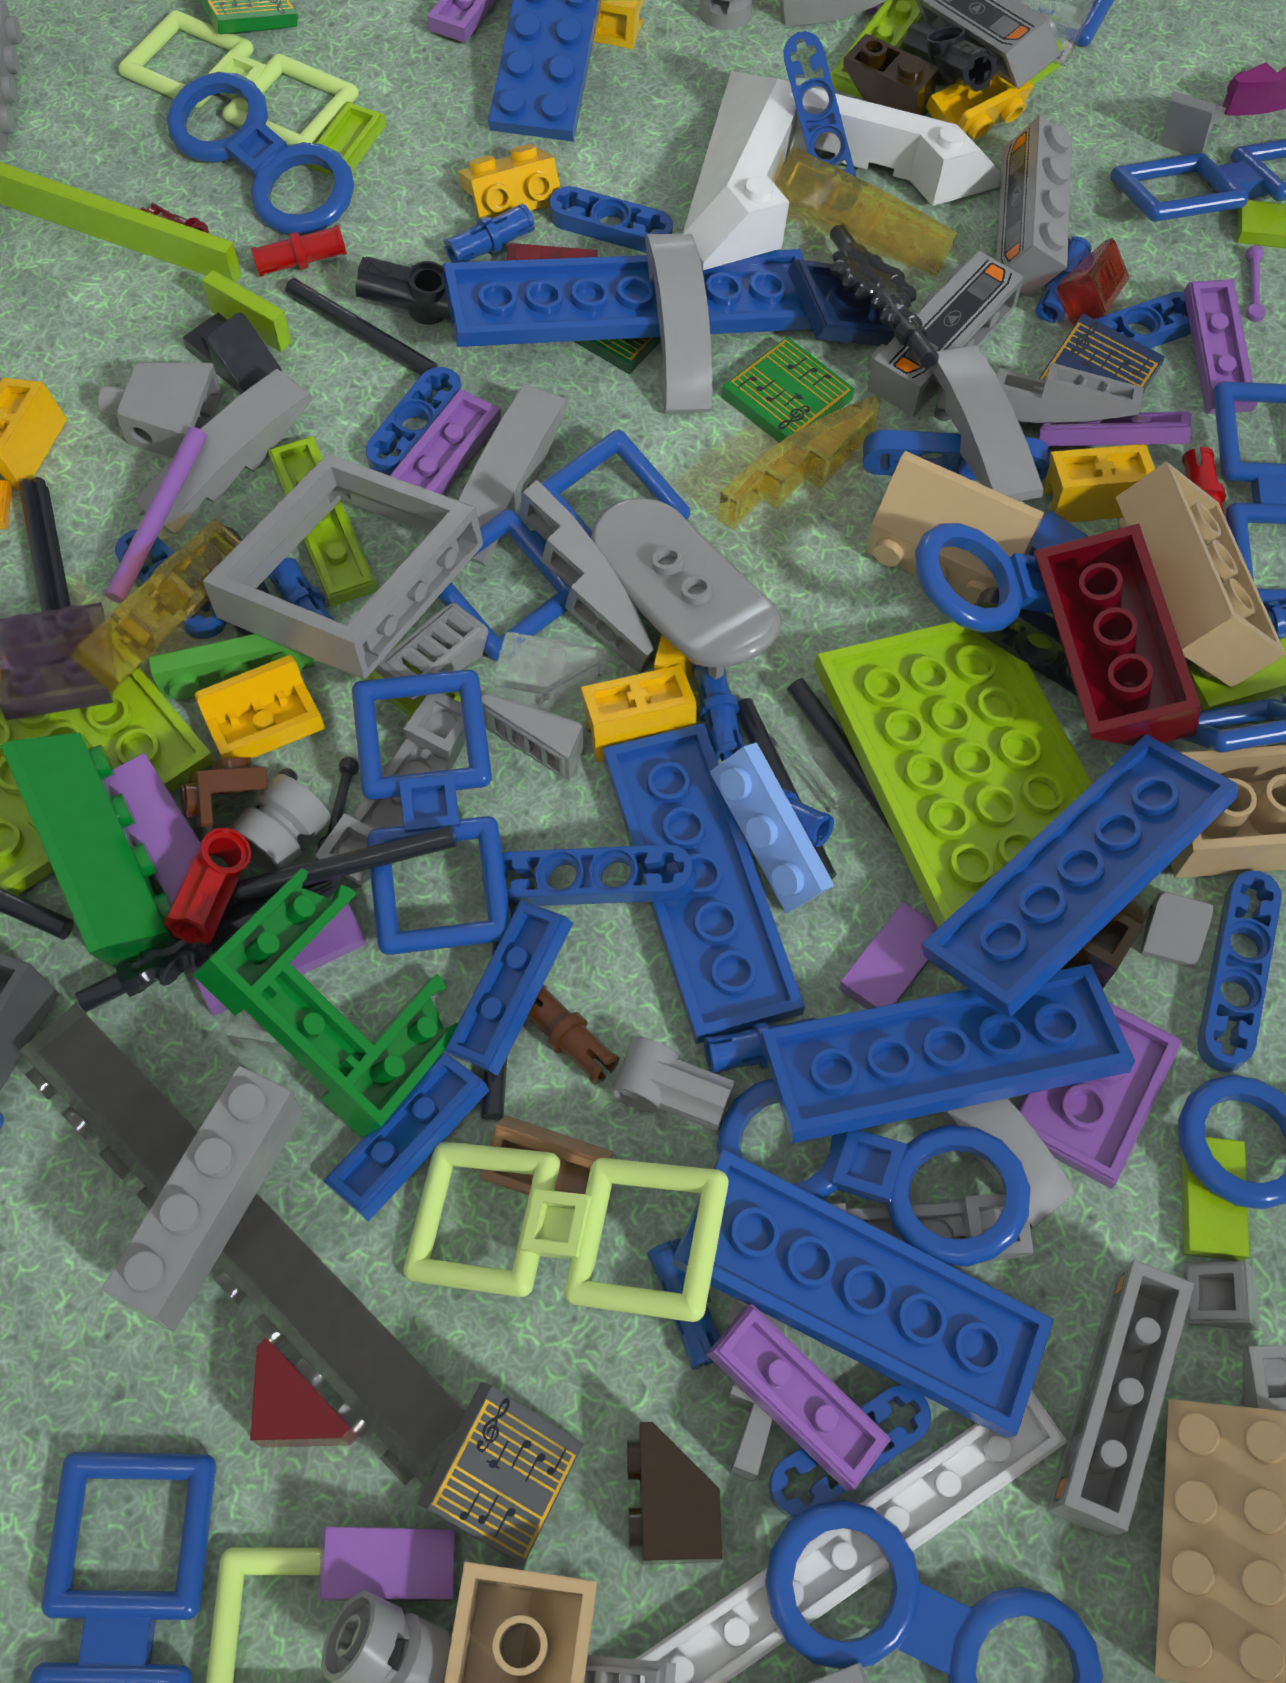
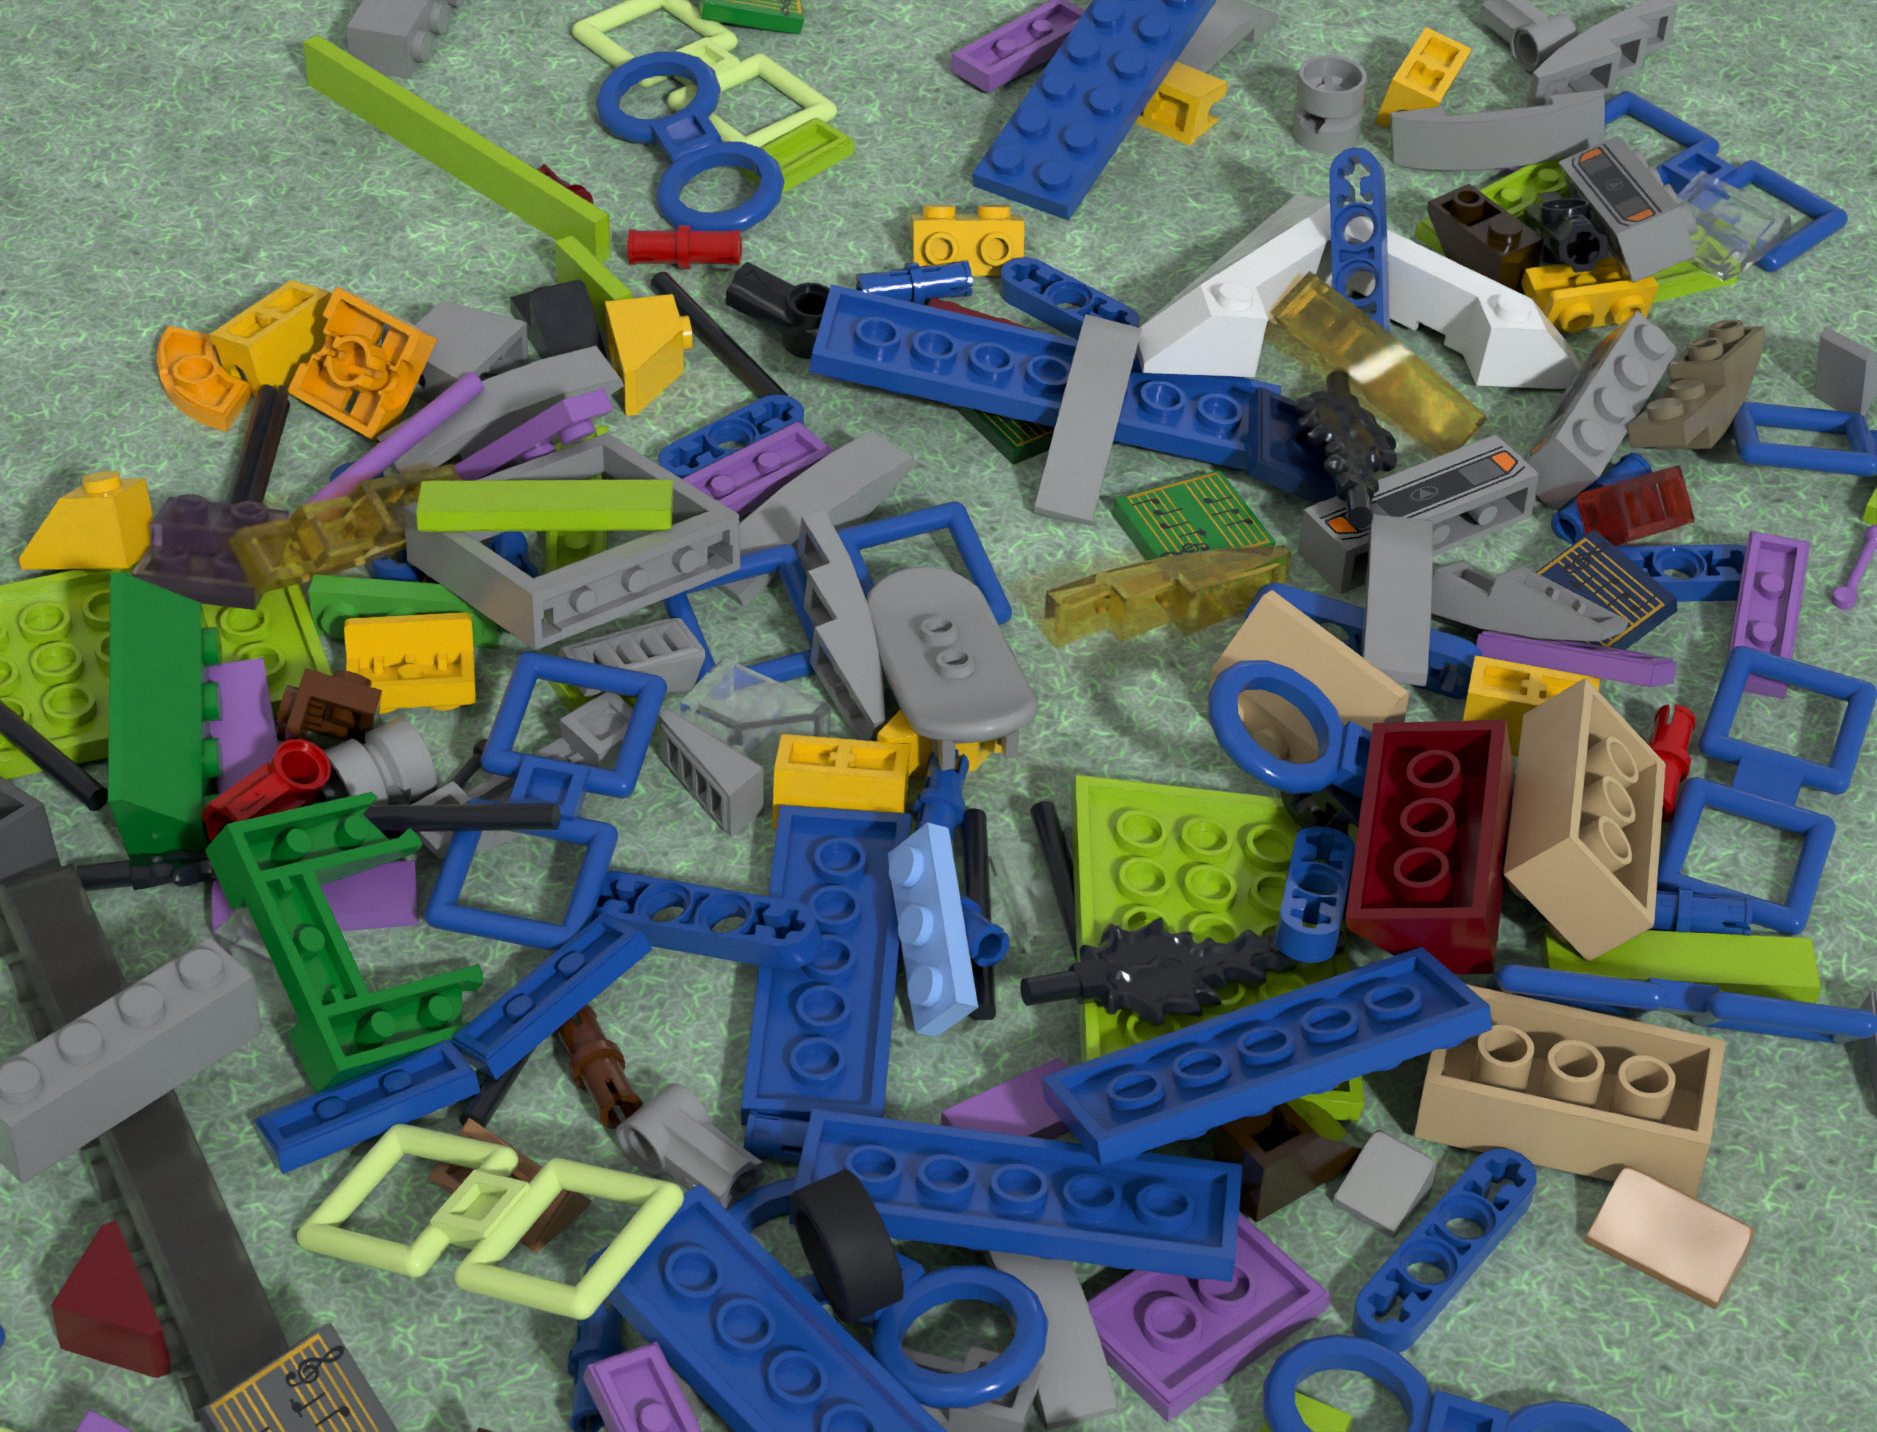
camera: 20 degrees right, 20 degrees down
(89, 442) = (356, 362): none -> light orange brick
(275, 477) = (564, 423): none -> medium lavender plate
(310, 353) = (646, 346): none -> yellow slope
(321, 548) = (545, 505): none -> lime tile
(864, 1168) = (847, 1246): none -> black tyre
(960, 812) = (1160, 971): none -> black piece
(1031, 722) = (1301, 906): none -> blue beam
(1098, 166) = (1704, 389): none -> dark tan slope

